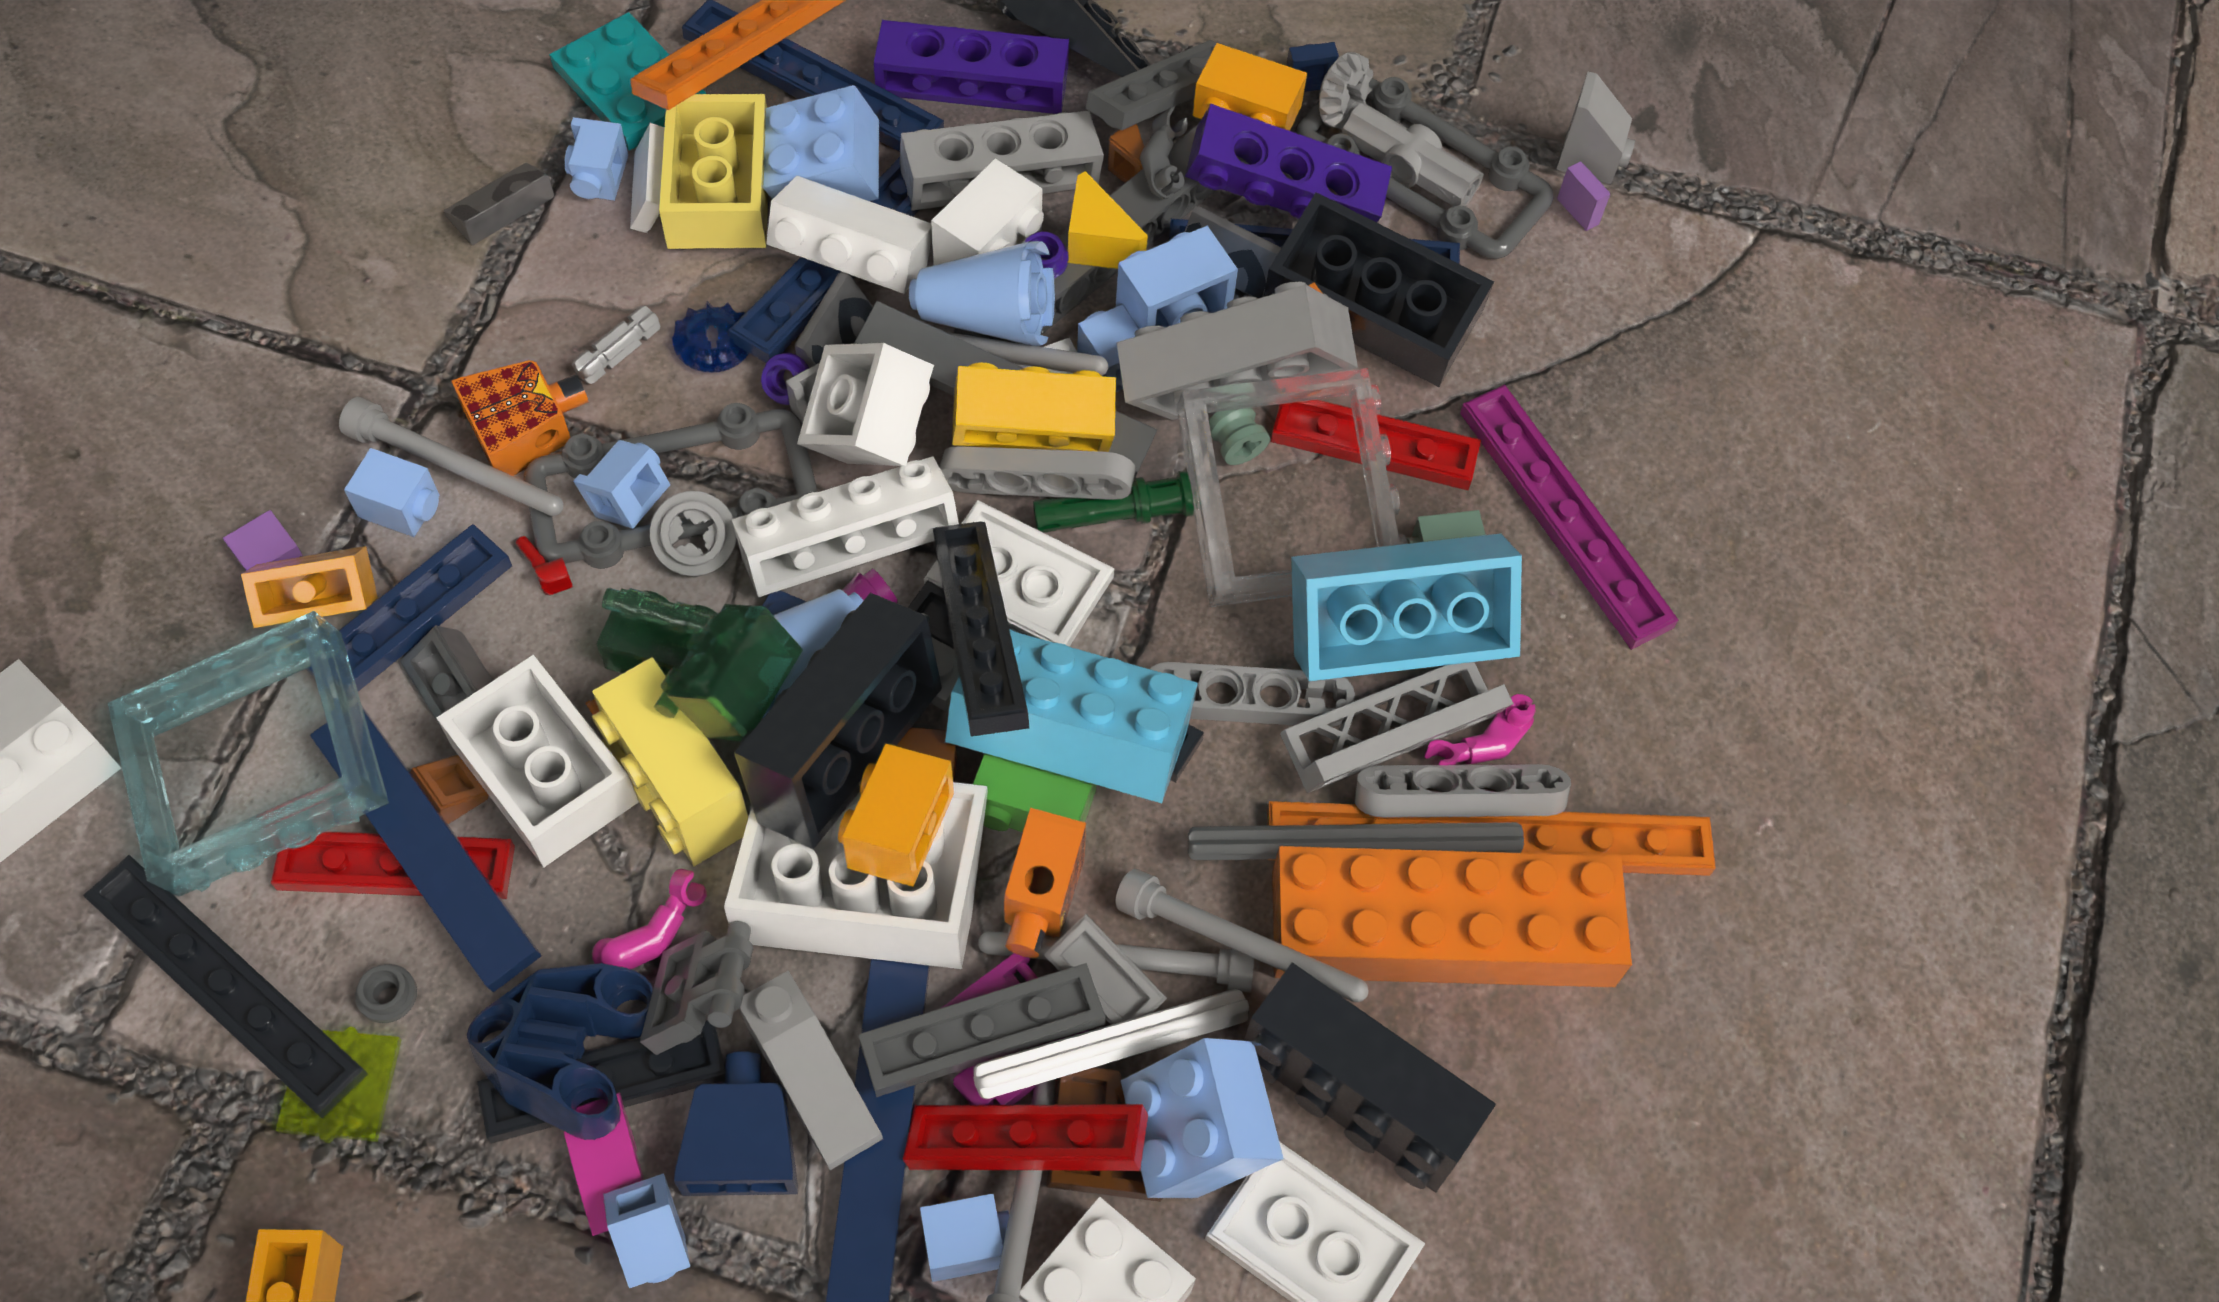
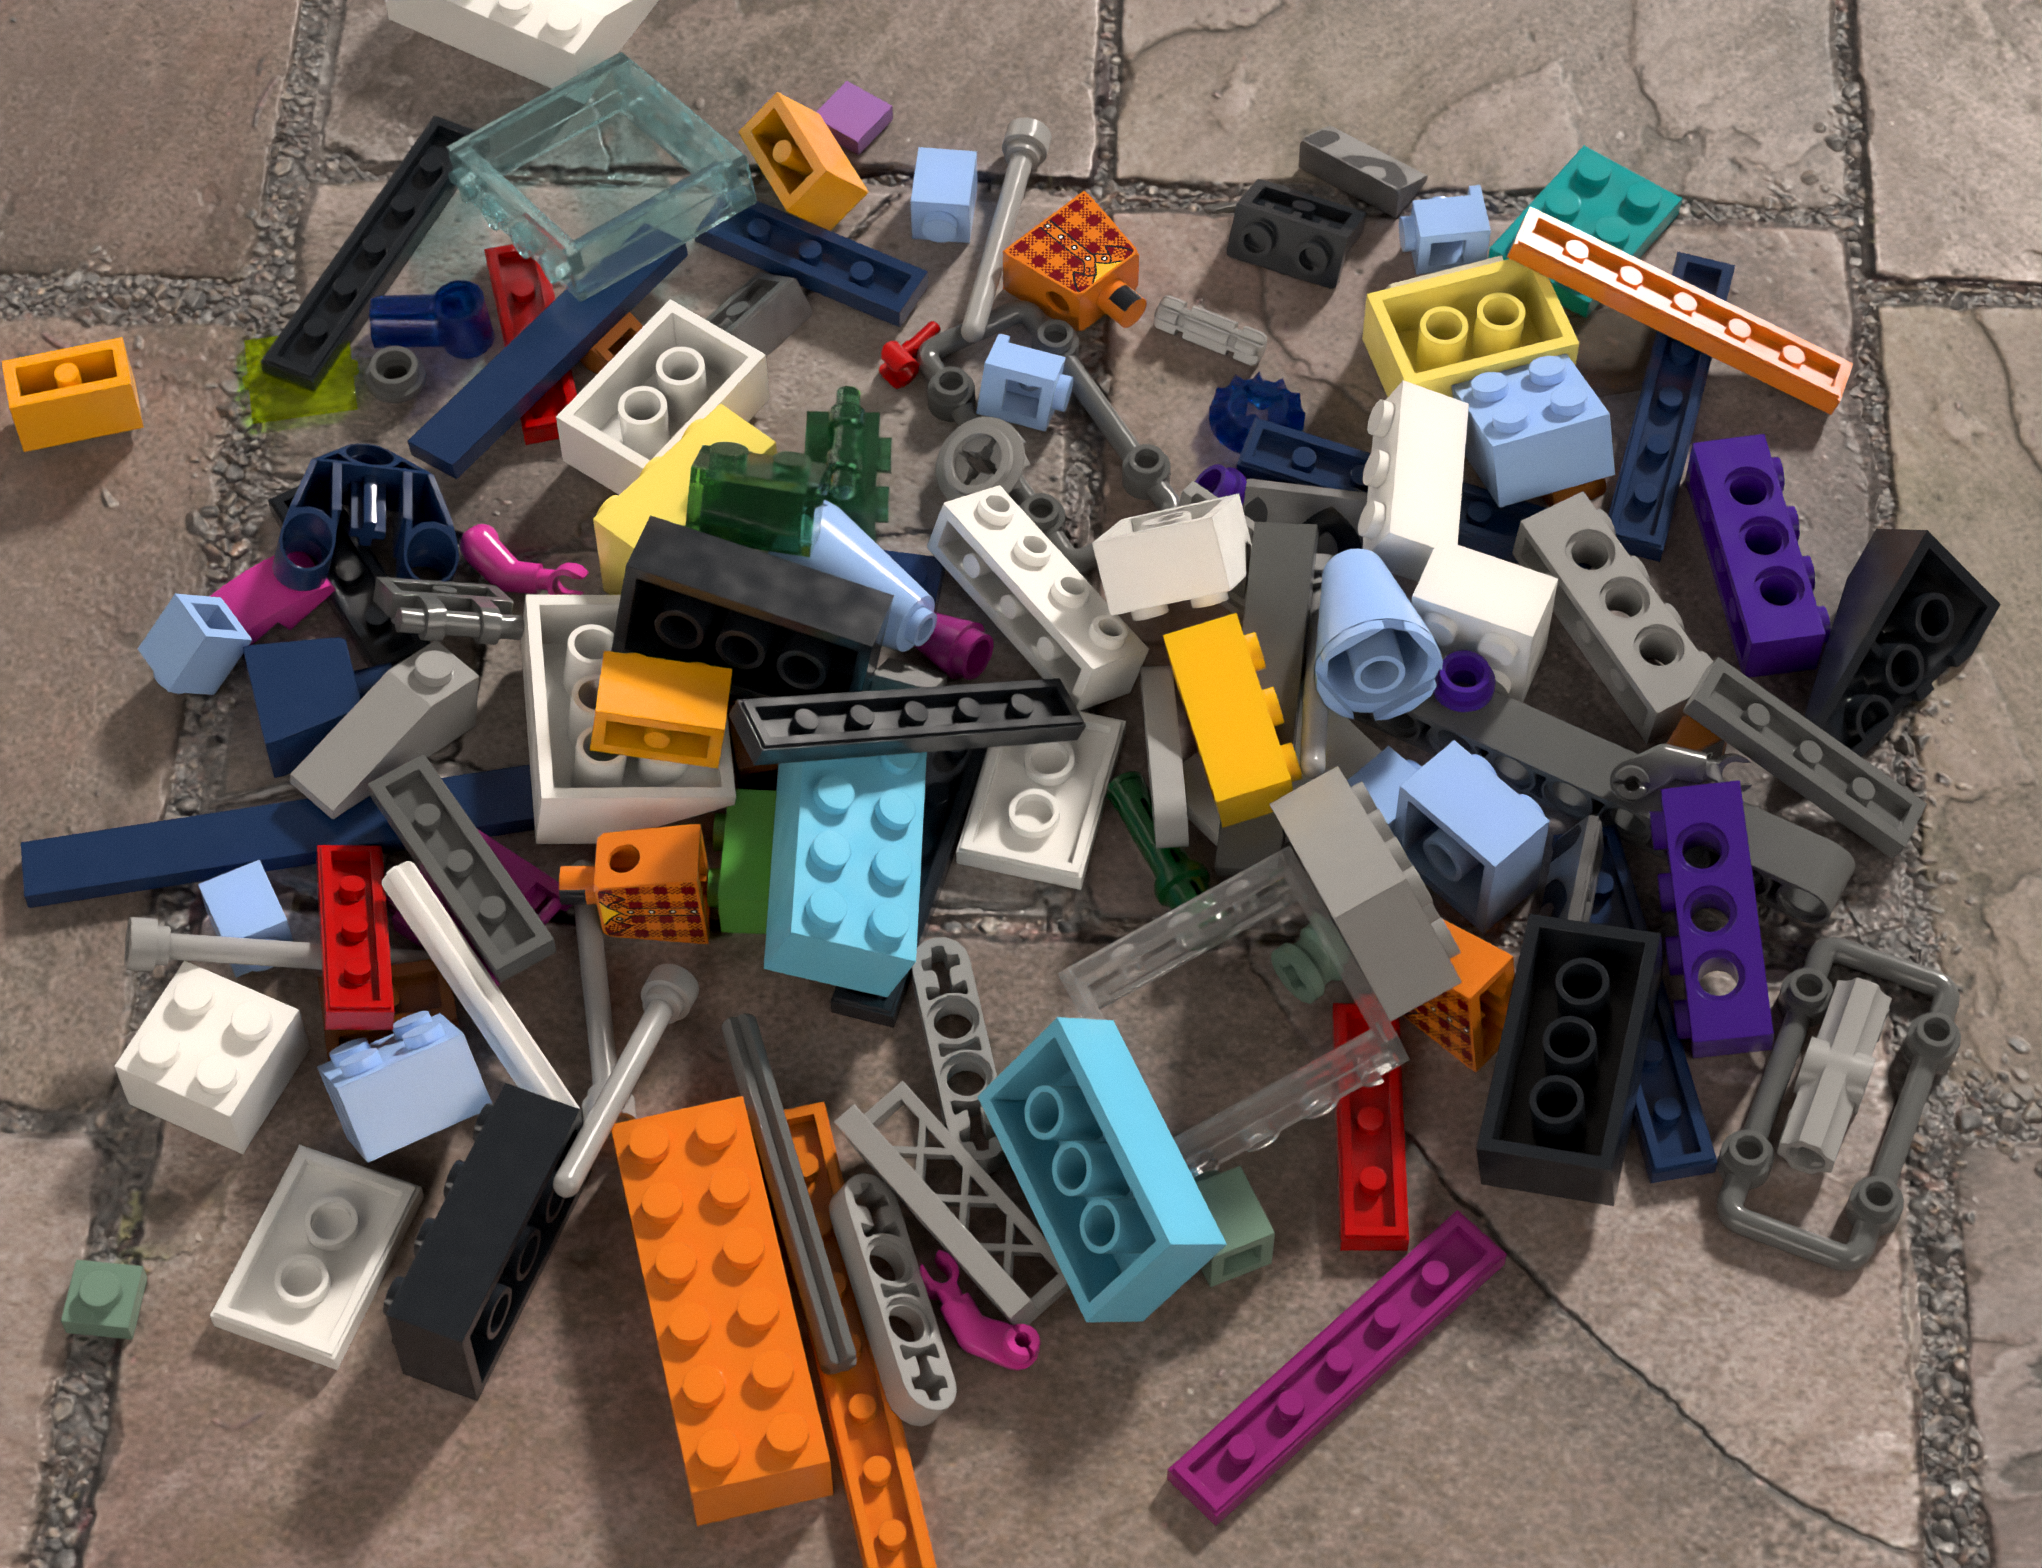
camera: 80 degrees right, 5 degrees down
(336, 949) = (449, 318): none -> clear blue piece
(547, 259) = (1294, 233): none -> black bracket
(1100, 229) = (1524, 717): yellow slope -> none
(1119, 983) = (566, 981): light grey tile -> none
(1250, 87) = (1806, 839): light orange brick -> none
(1314, 60) = (1930, 925): dark blue plate -> none
(1335, 99) = (1909, 950): light grey gear -> none
(1583, 196) = (1856, 1296): medium lavender tile -> none
(1597, 132) = (1959, 1281): light grey slope -> none

